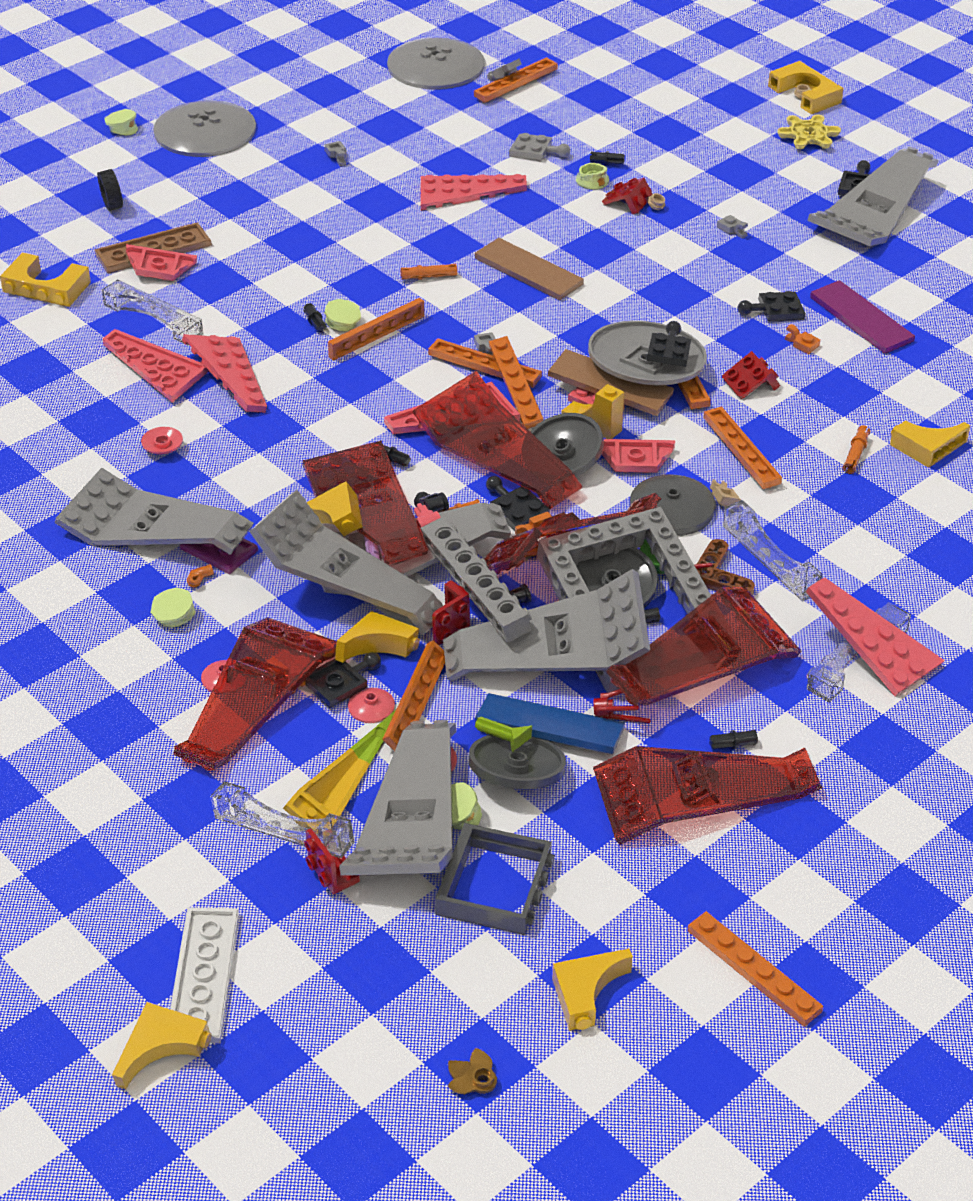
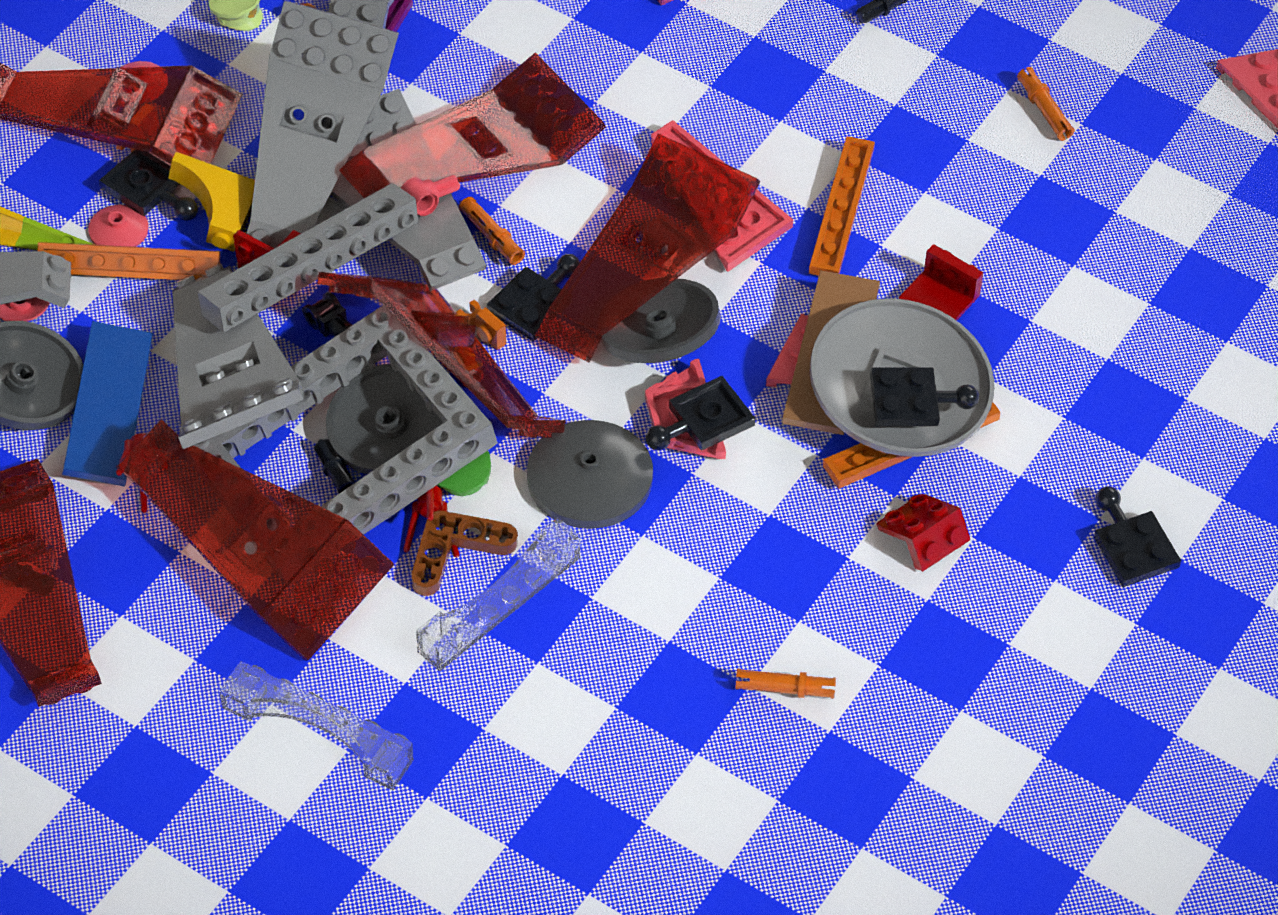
camera: 75 degrees right, 10 degrees up
(338, 508) = (429, 104): yellow arch -> none
(342, 314) = (893, 28): yellowish green hat -> none
(375, 329) = (876, 73): orange plate -> none
(397, 456) = (600, 147): black axle -> none
(433, 502) = (491, 201): black connector -> none
(482, 342) = (889, 198): light grey plate -> none
(515, 382) = (798, 245): orange plate -> none
(516, 736) = (61, 364): lime piece -> none
(529, 268) = (1108, 219): medium nougat tile -> none
(564, 332) = (945, 283): none -> red bracket
(605, 411) = (750, 348): yellow arch -> none
(651, 436) = (706, 413): none -> black plate
(723, 495) = (621, 529): tan plate -> none
(733, 739) = (116, 601): black axle -> none
(742, 448) = (742, 537): orange plate -> none
(804, 342) = (1051, 590): orange plate -> none
(862, 316) = (1154, 662): magenta tile -> none
(884, 647) = (321, 739): coral wing -> none
(928, 444) = (823, 778): yellow arch -> none

